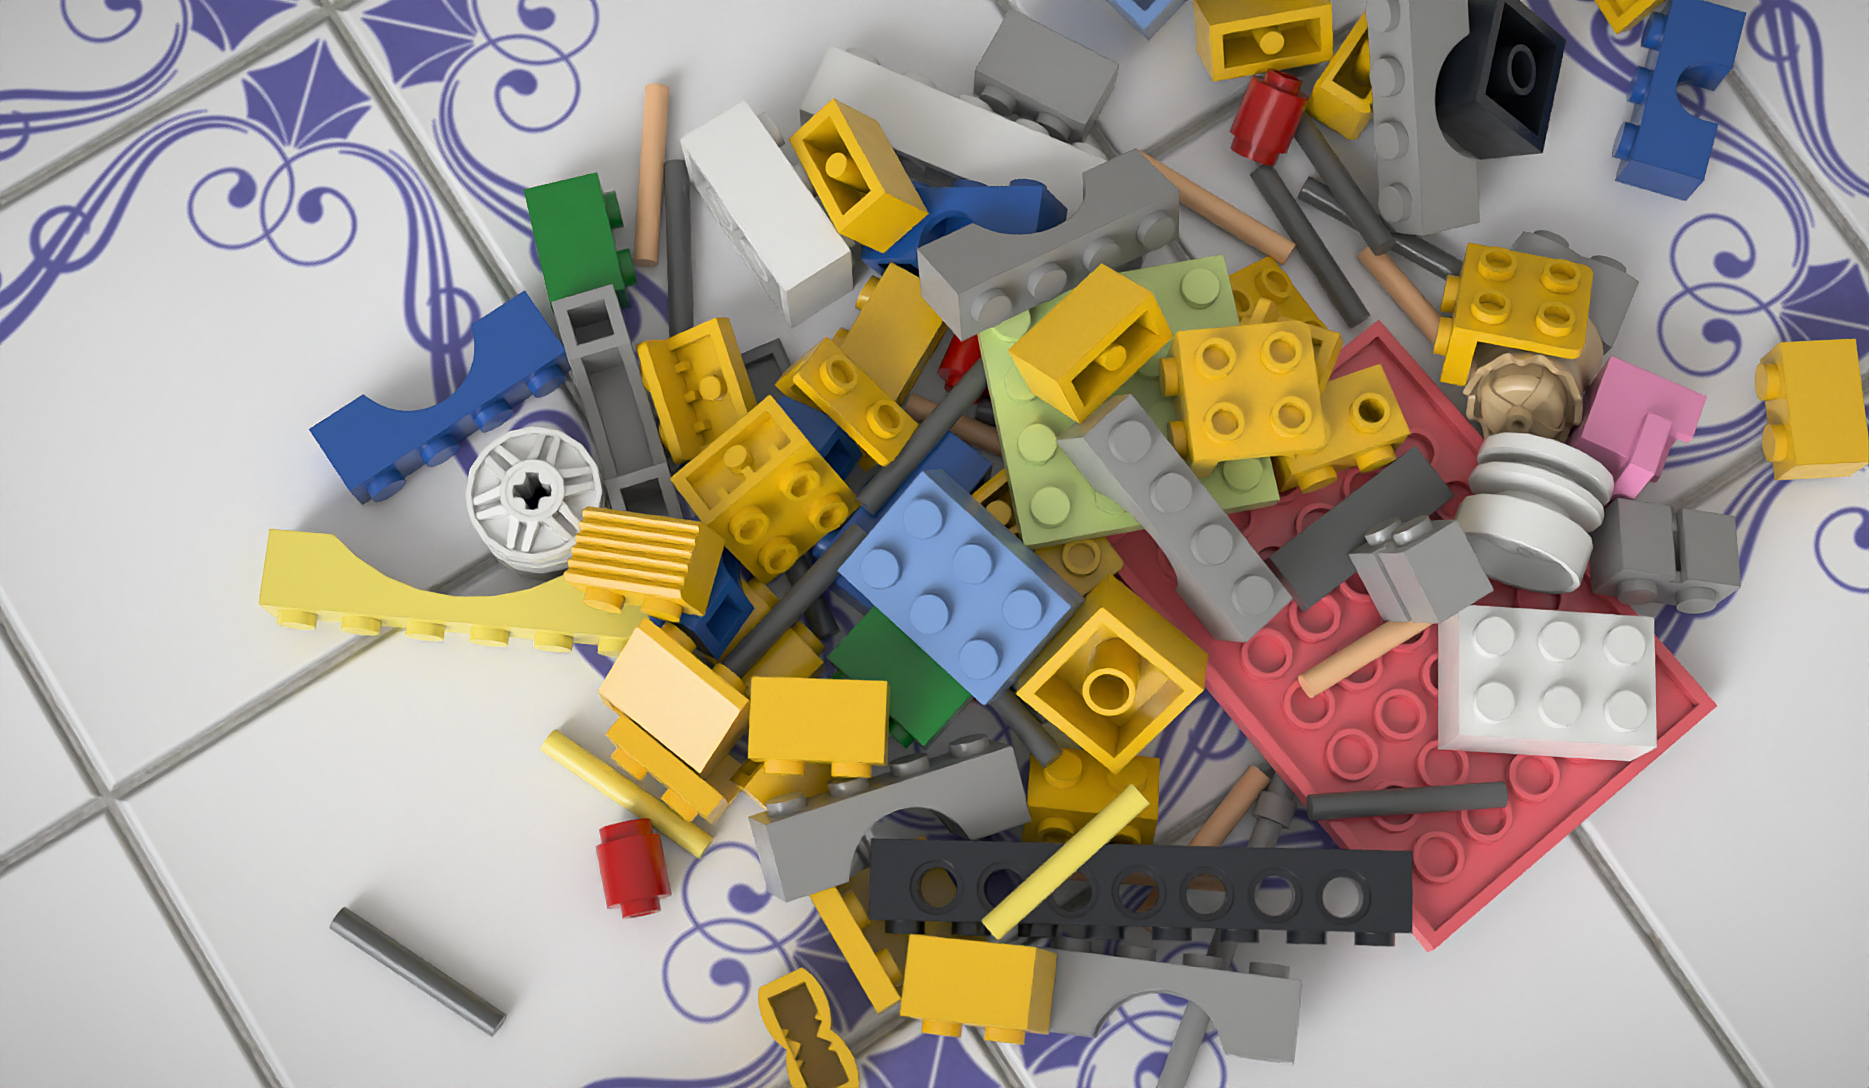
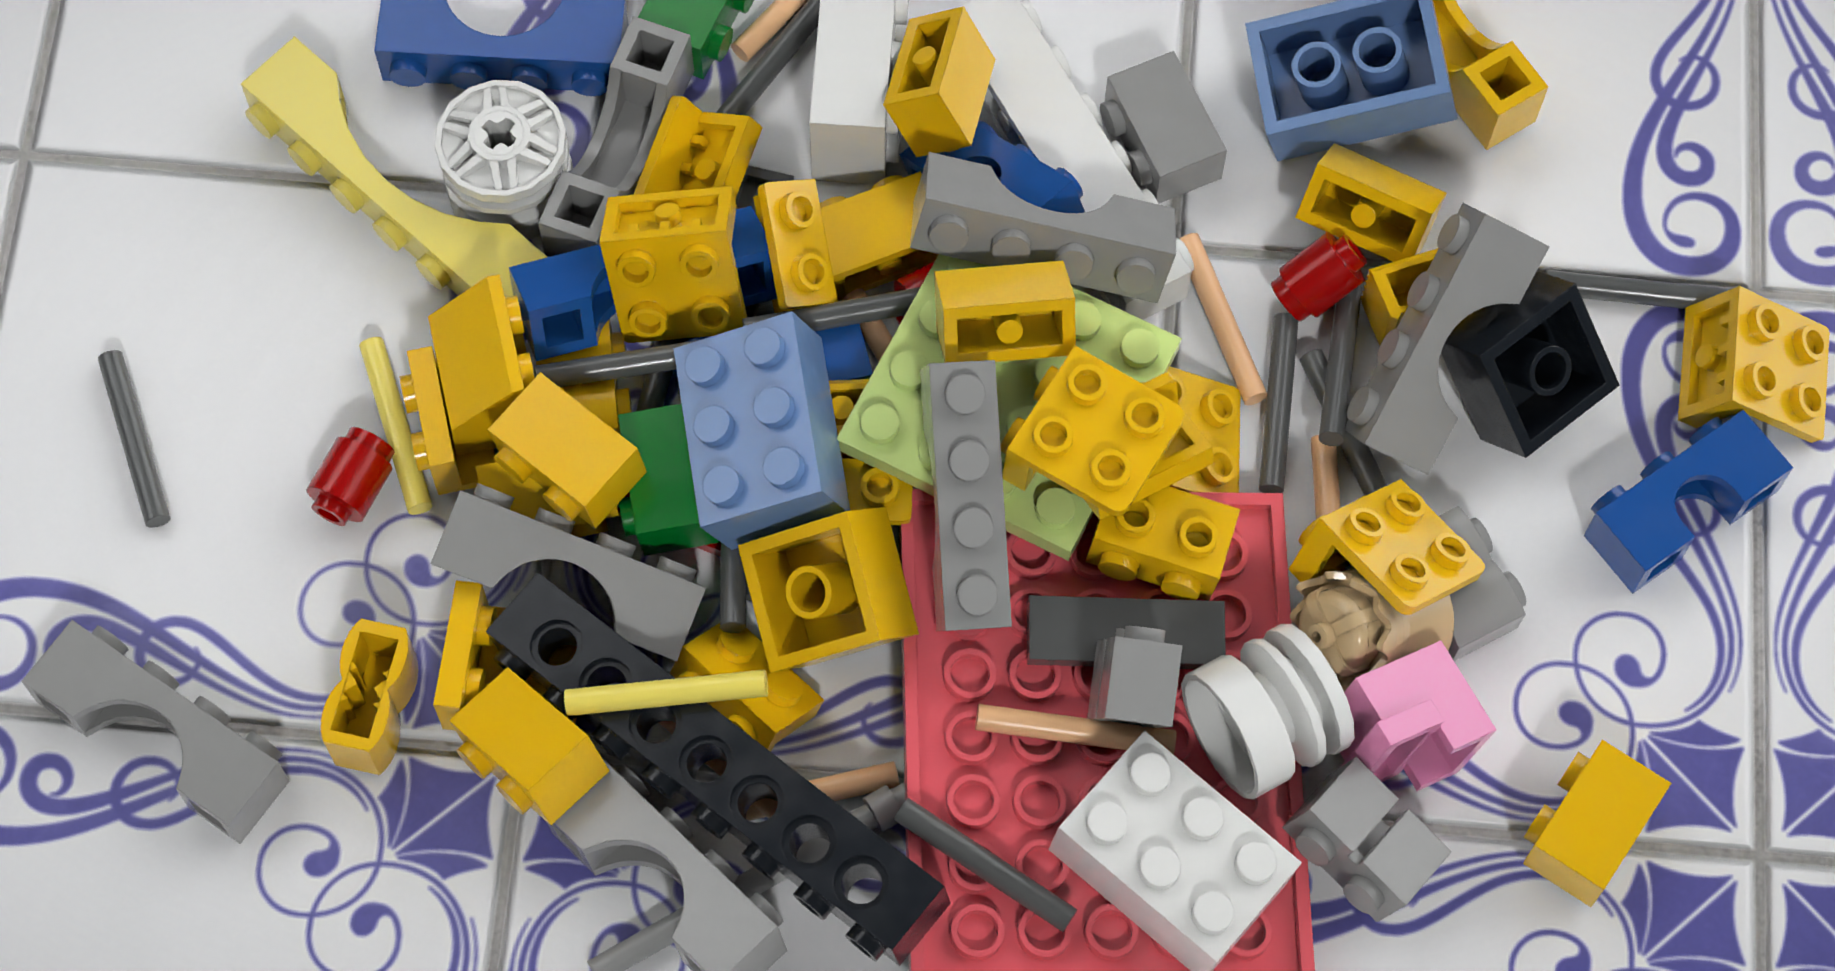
camera: 40 degrees right, 10 degrees down
(644, 562) = (533, 237): yellow brick -> none

